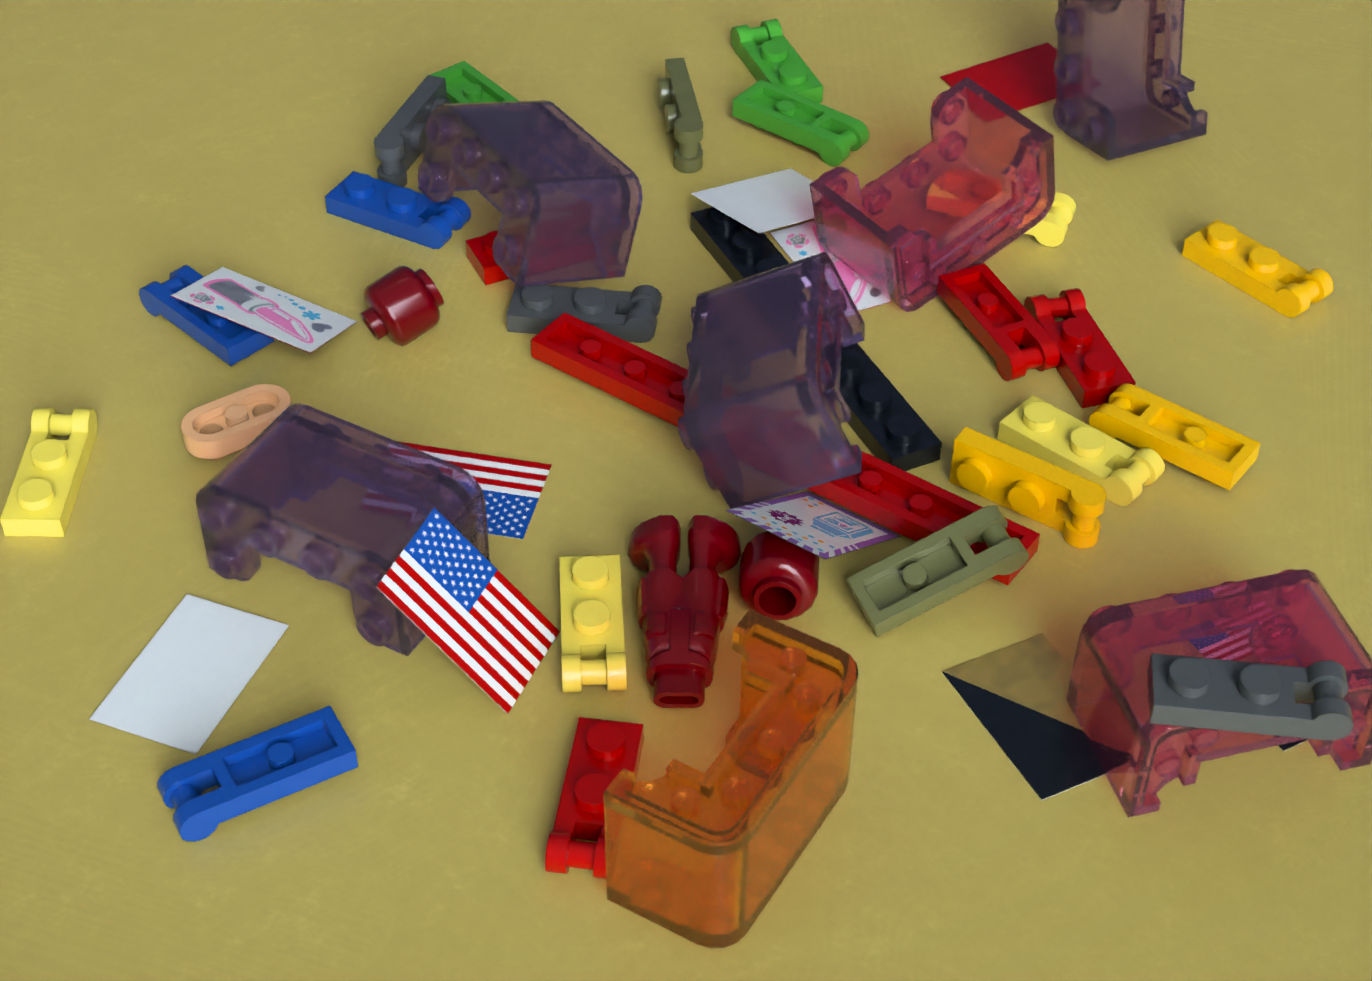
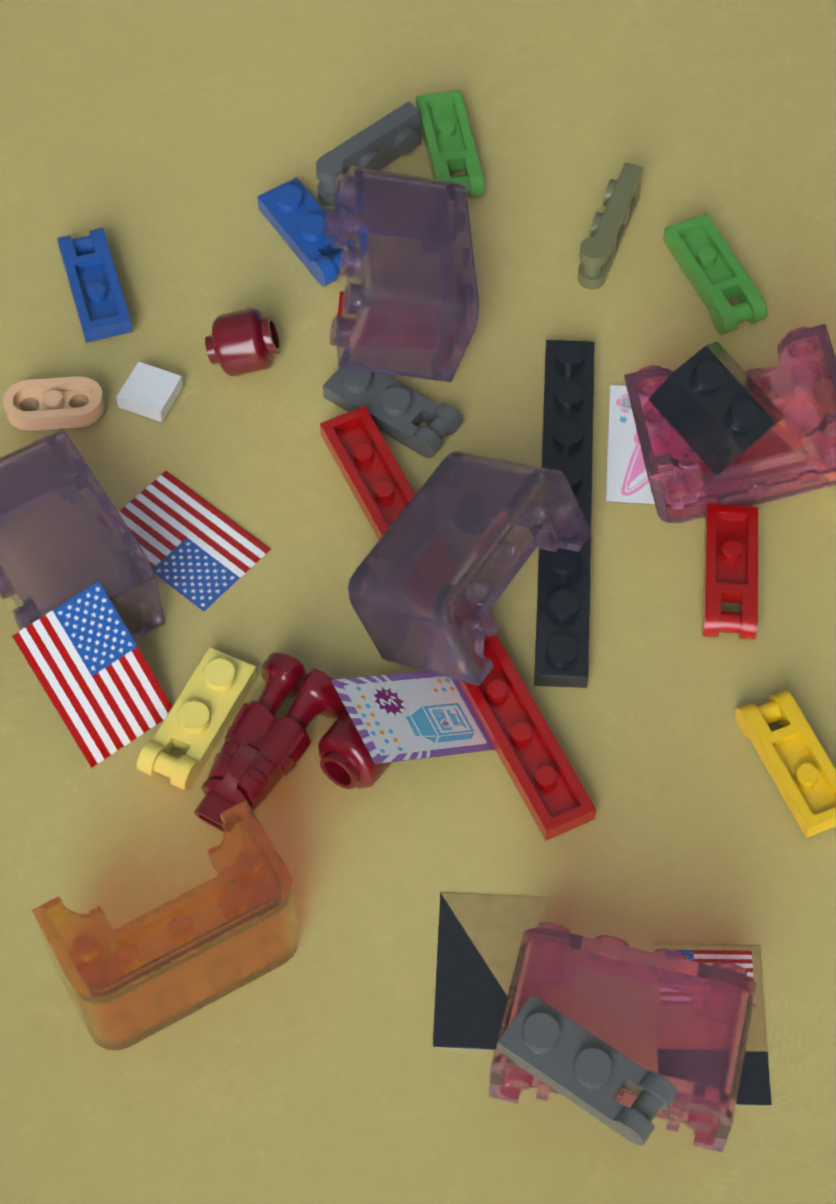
camera: 30 degrees right, 15 degrees up
(265, 309) = (136, 301): white sticker -> none
(330, 381) = (150, 391): none -> white tile
(595, 760) = (109, 864): red plate -> none
(764, 201) = (606, 351): white sticker -> none
(774, 59) = (744, 196): bright green plate -> none
(912, 178) = (715, 407): none -> black slope
(936, 569) = (482, 804): olive plate -> none
(1029, 486) = (623, 757): yellow plate -> none
(1081, 449) = (705, 736): light yellow plate -> none
(1086, 356) = (785, 631): red plate -> none

